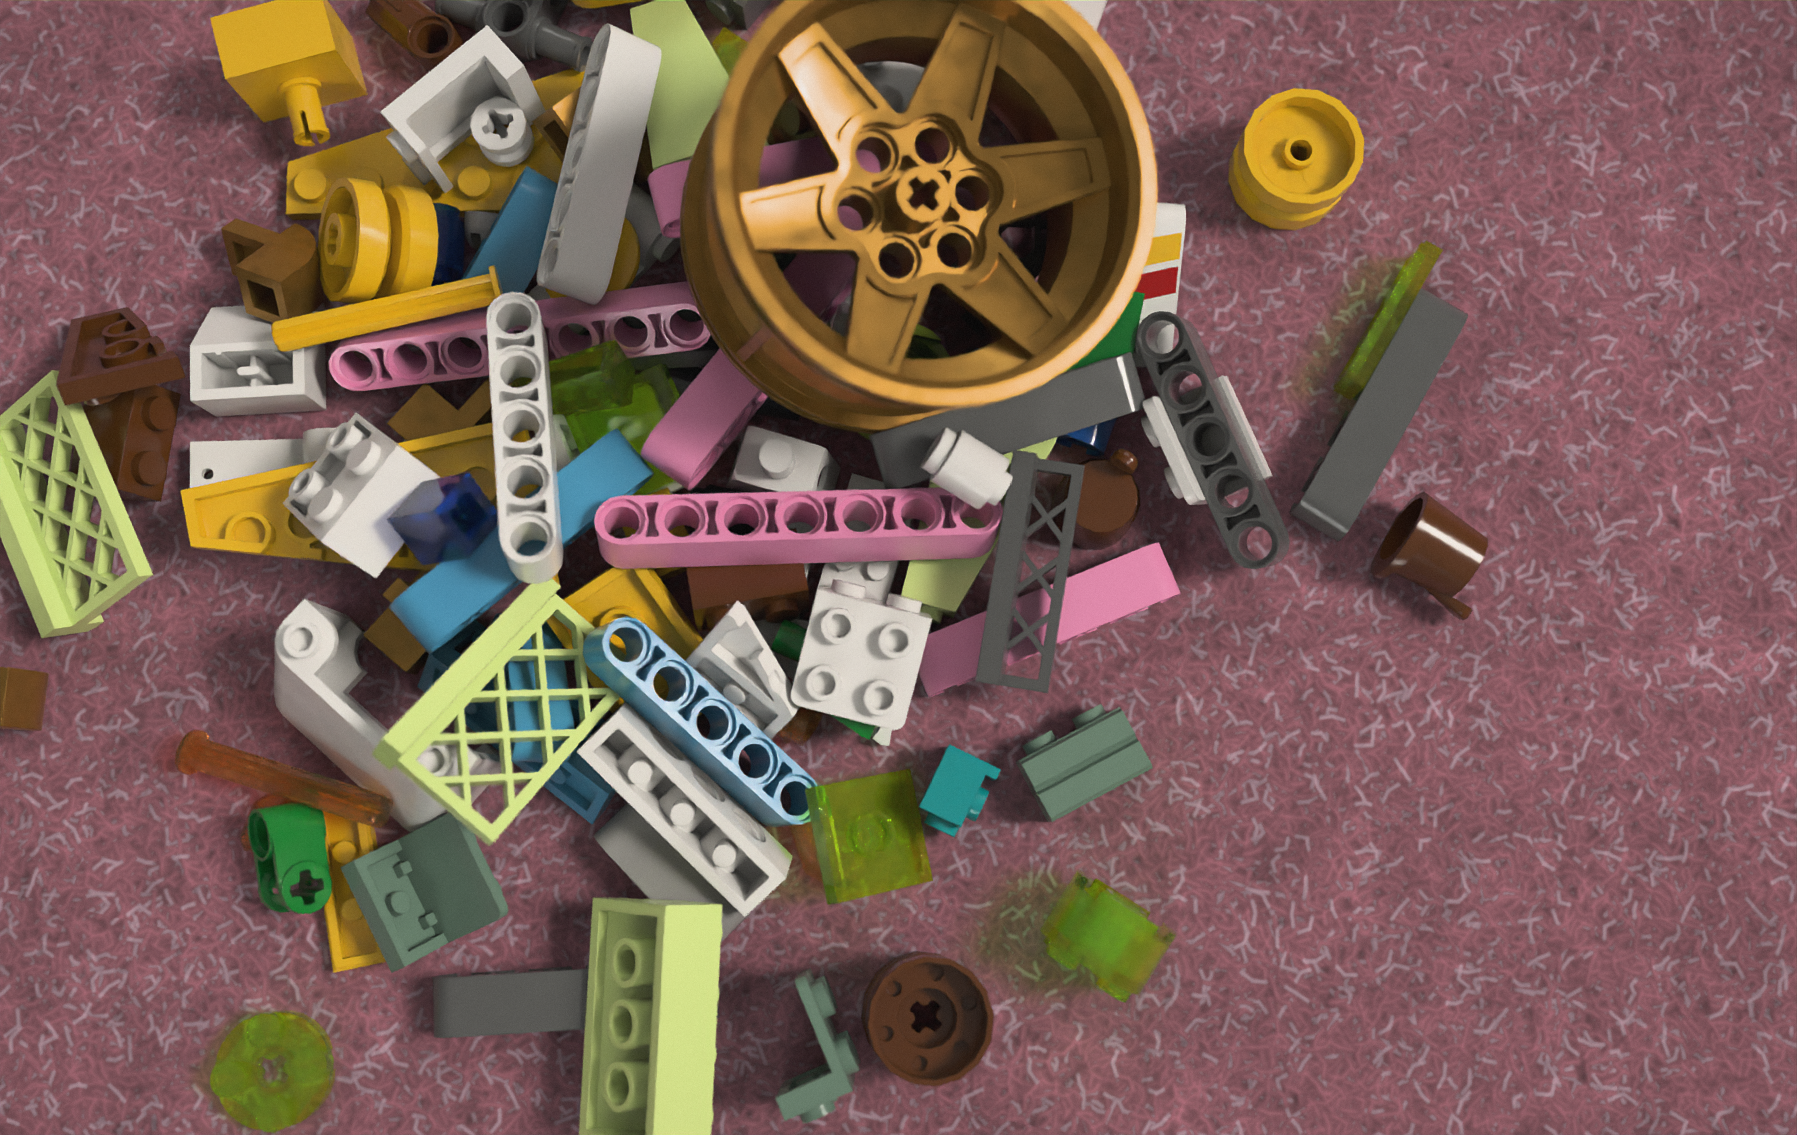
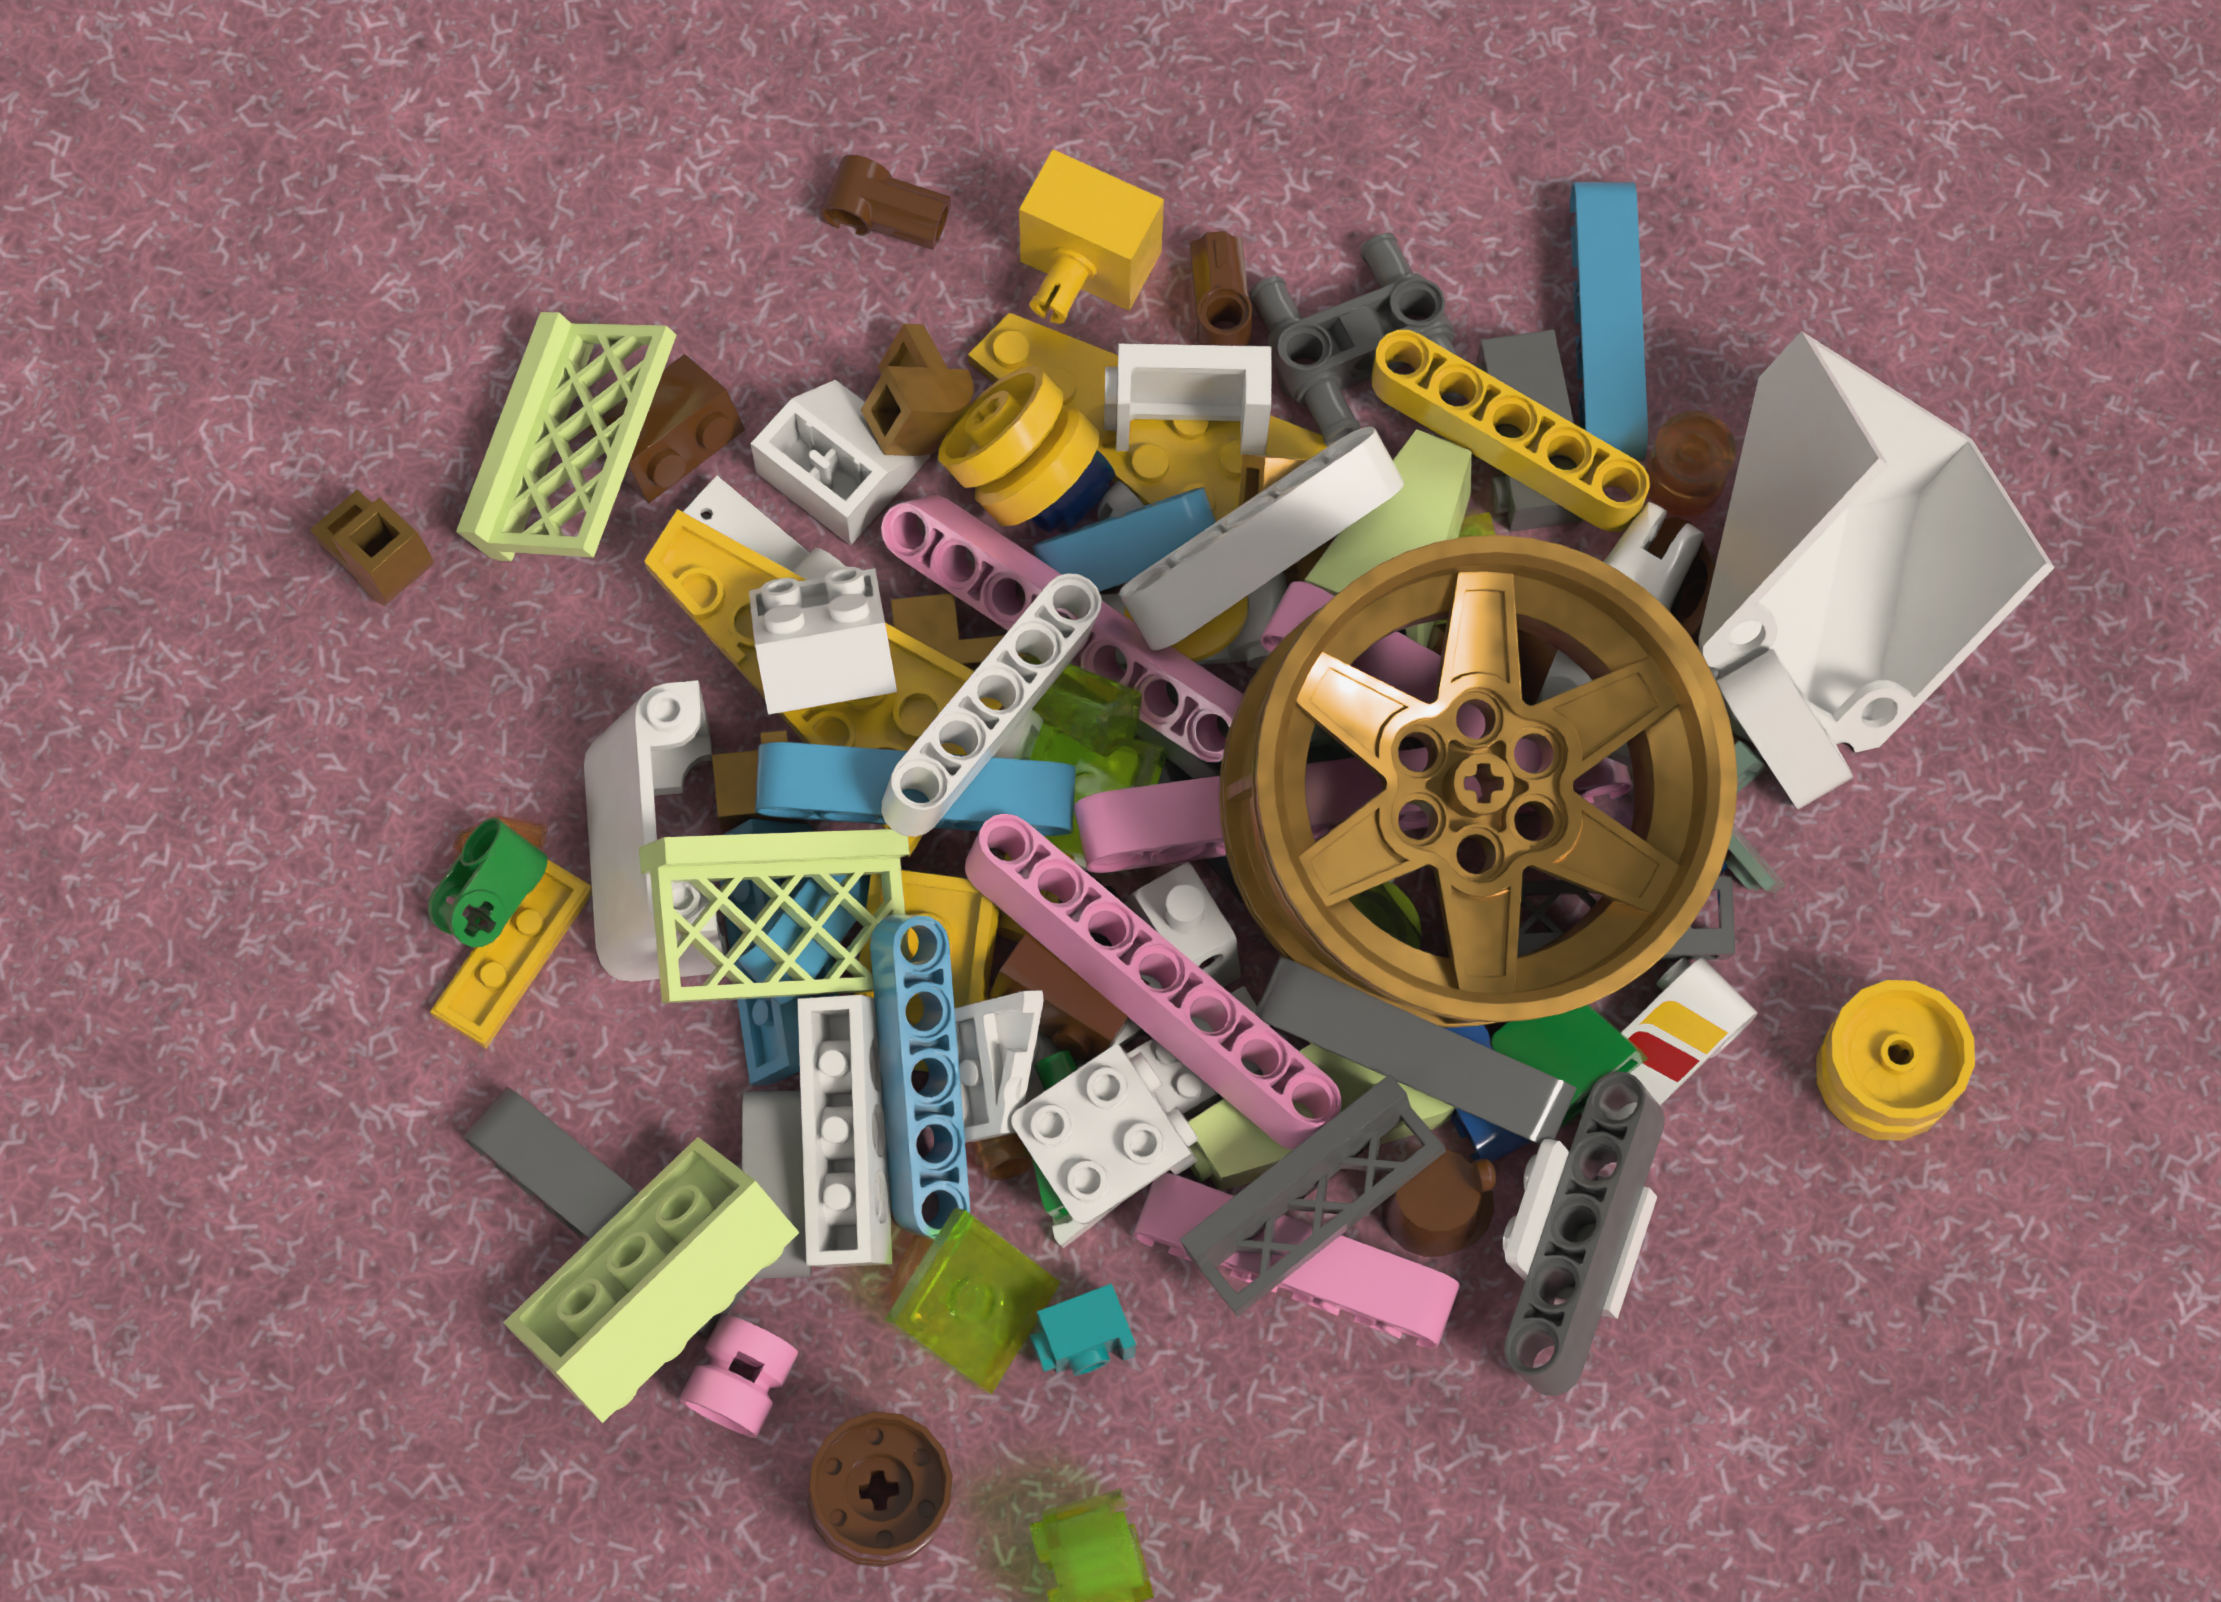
camera: 45 degrees right, 10 degrees down
(112, 356) = (723, 354): reddish brown wing -> none
(121, 165) = (870, 199): none -> reddish brown piece
(277, 1104) = (280, 1026): clear neon green plate -> none
(355, 803) = (537, 815): clear orange axle -> none
(386, 312) = (977, 509): yellow axle -> none
(425, 890) = (569, 1009): sand green bracket -> none
(445, 519) = (868, 713): clear blue brick -> none
(508, 145) = (1208, 456): white wheel -> none
(771, 1044) = (728, 1396): none -> bright pink wheel
(816, 1090) = (739, 1464): sand green bracket -> none
(967, 468) = (1333, 1051): white brick -> none
(1082, 763) = (1213, 1409): sand green brick -> none
(1379, 417) = (1766, 1348): dark grey beam -> none
(1386, 320) = (1852, 1275): clear neon green tile -> none
(1432, 551) = (1700, 1511): reddish brown hat -> none

